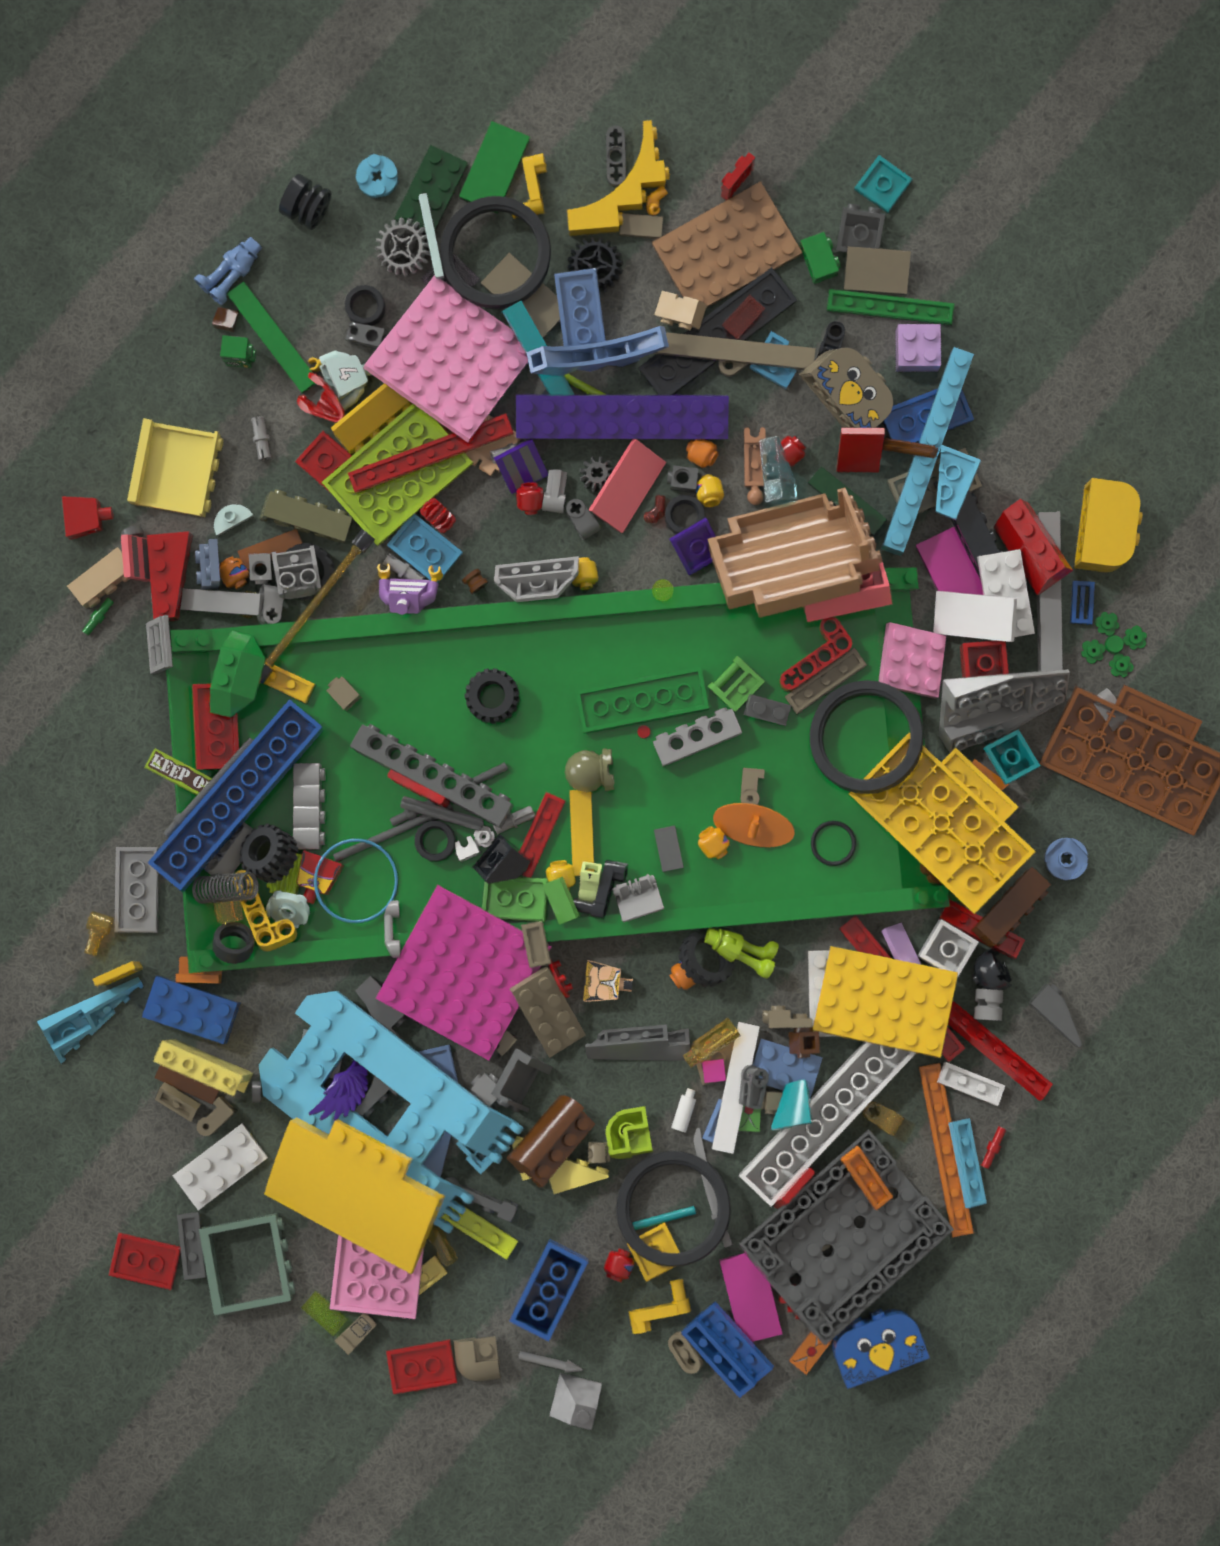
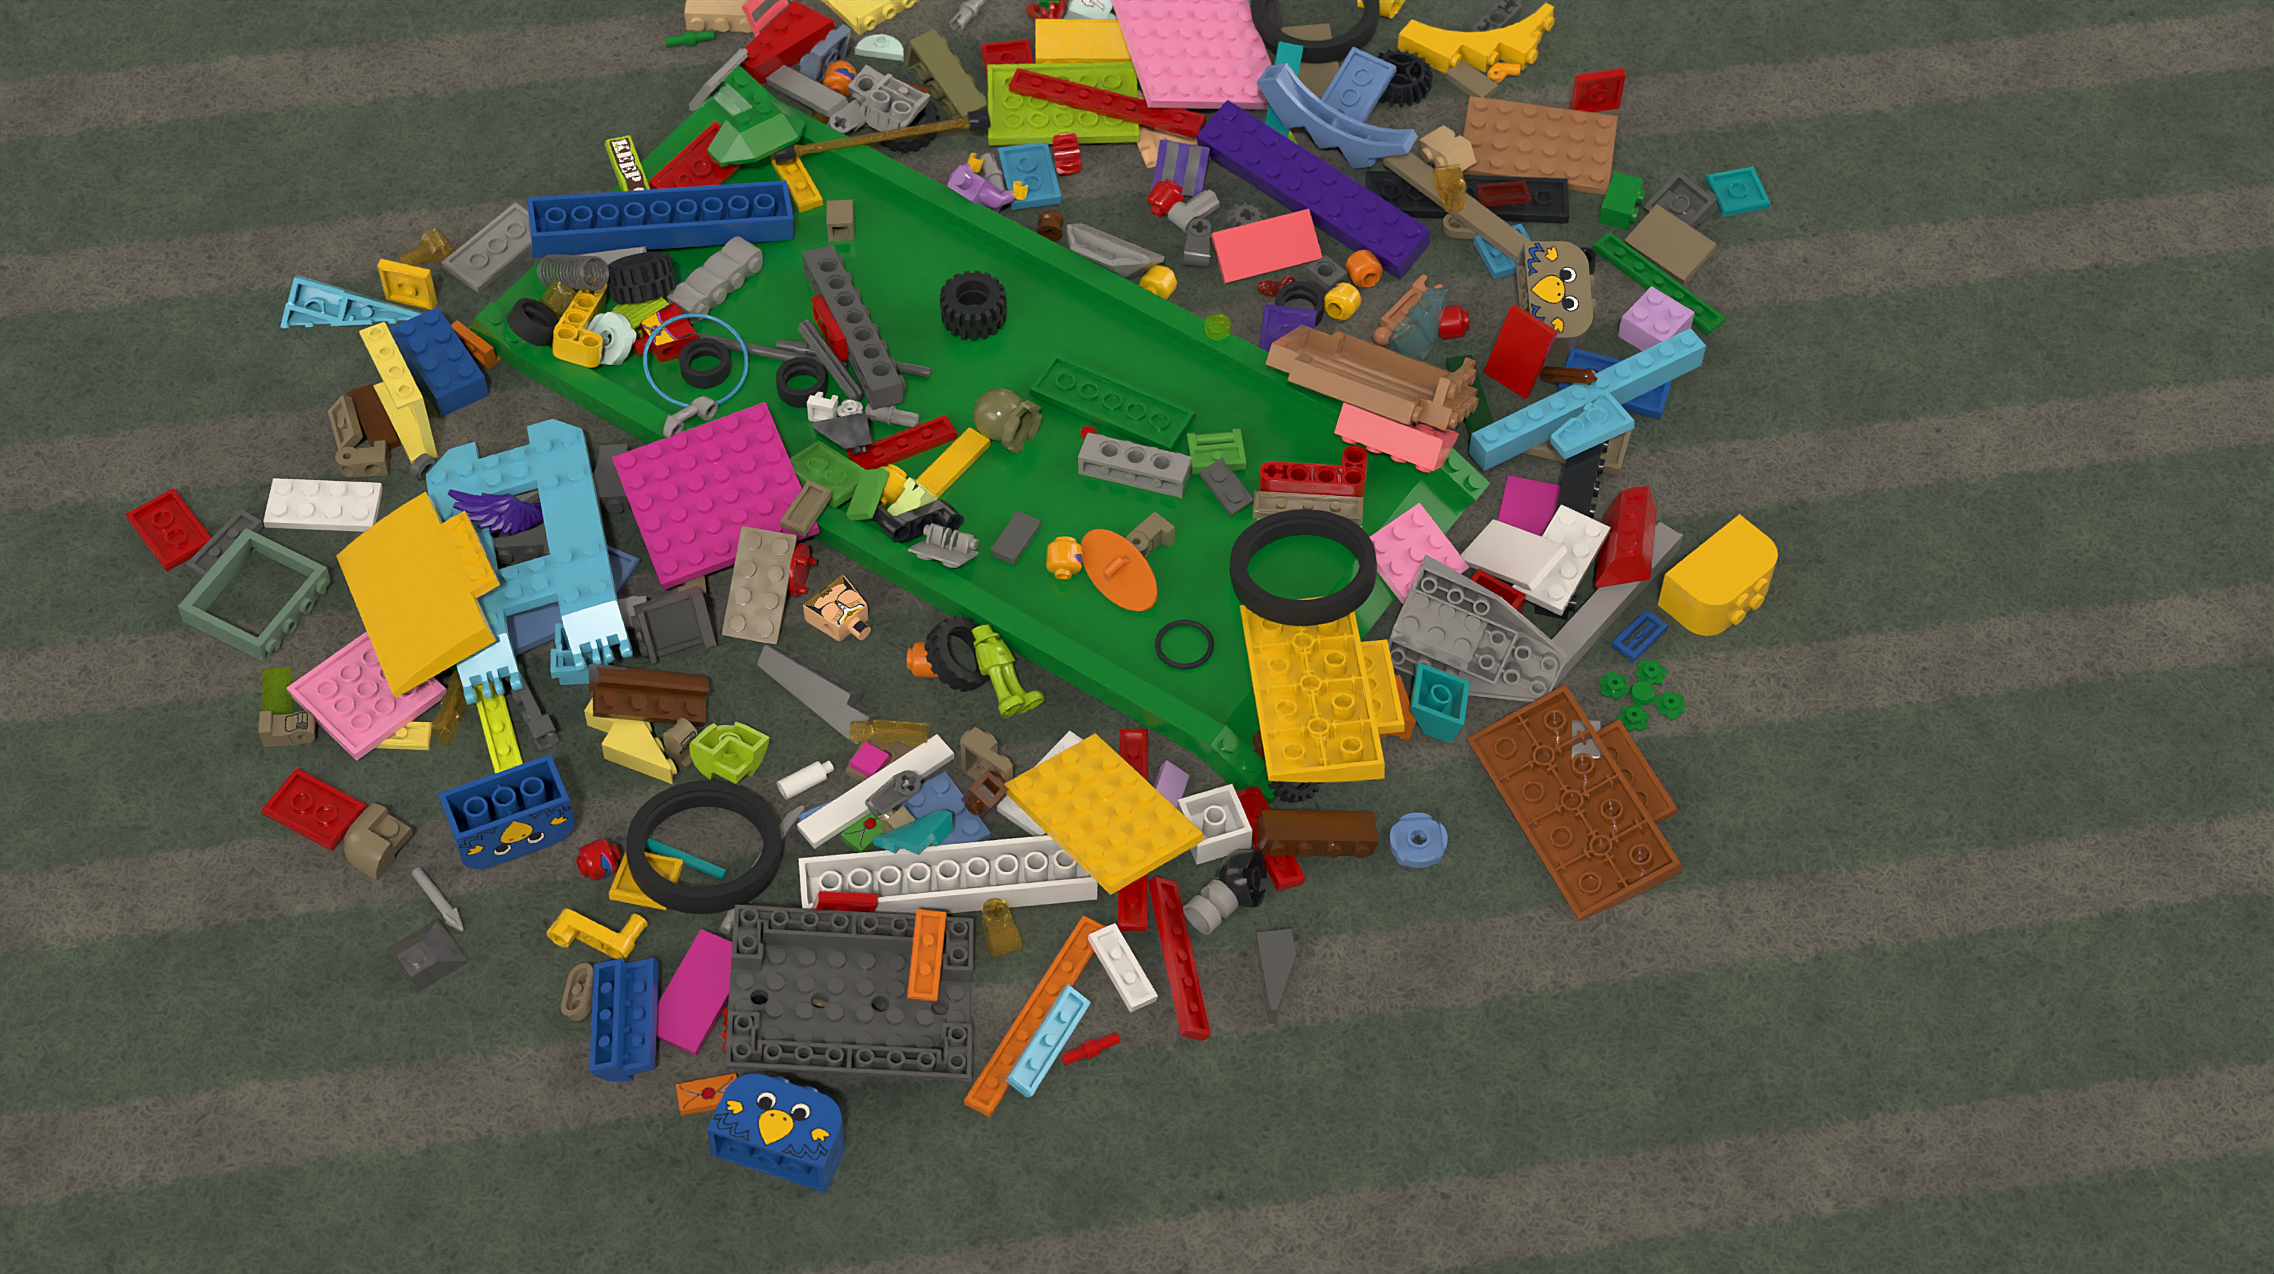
camera: 35 degrees right, 30 degrees down
(360, 891) = (706, 378): none -> black tyre
(709, 342) = (1450, 186): none -> clear yellow piece

